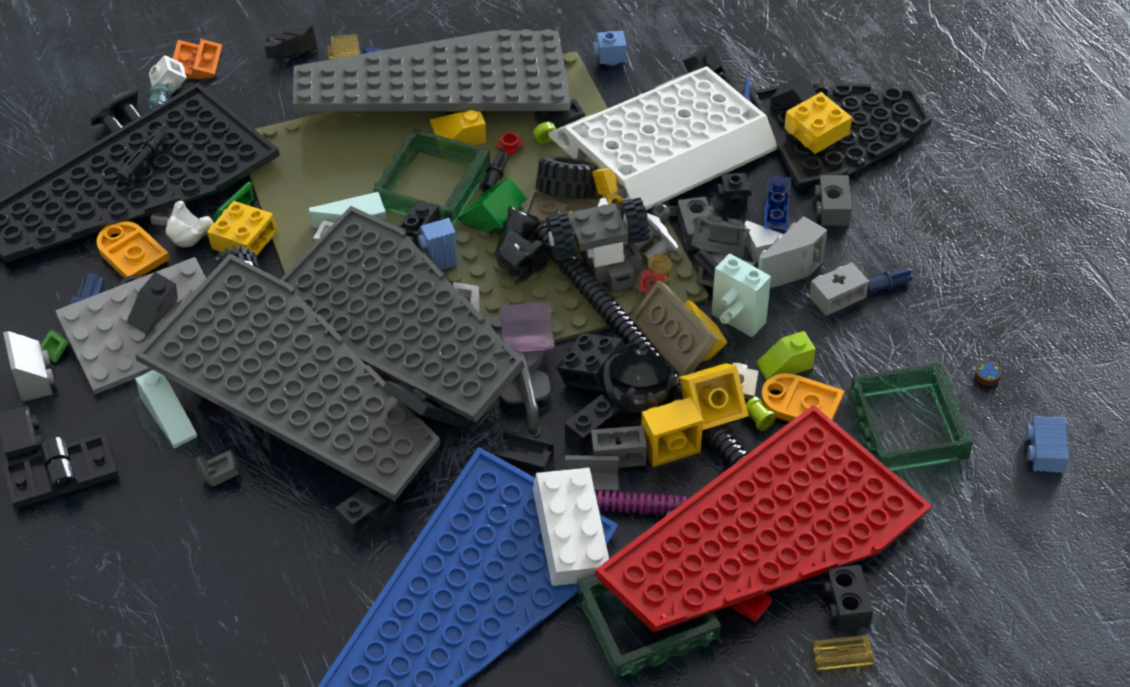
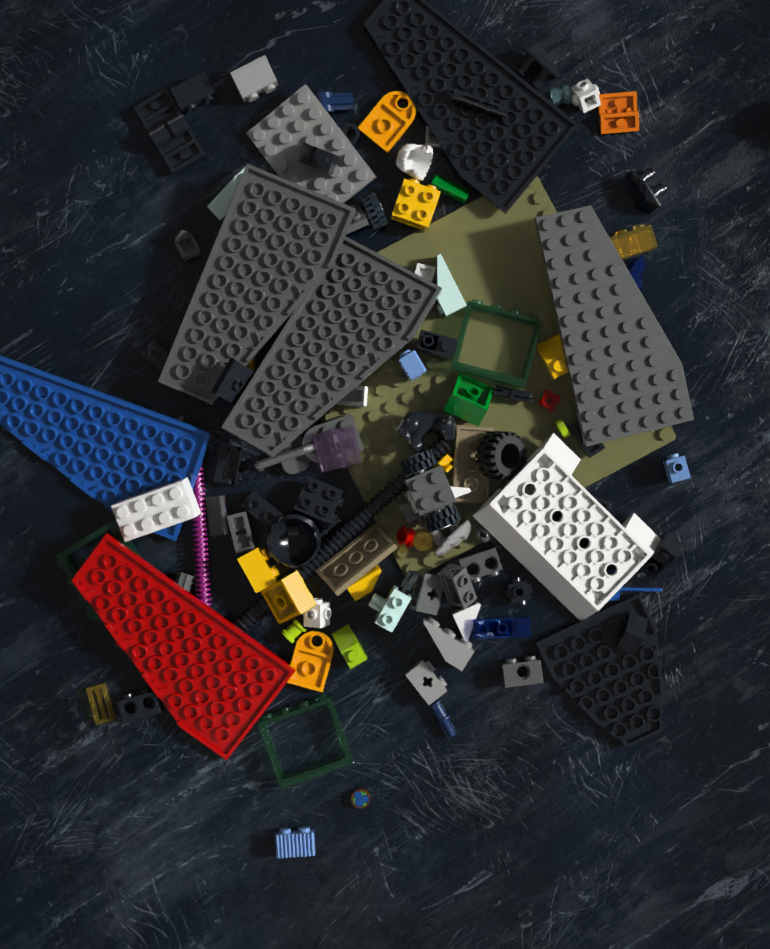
camera: 80 degrees right, 40 degrees up
(54, 344) = (285, 89): bright green slope -> none
(606, 185) = (489, 490): yellow plate -> none
(818, 122) = (596, 654): yellow brick -> none

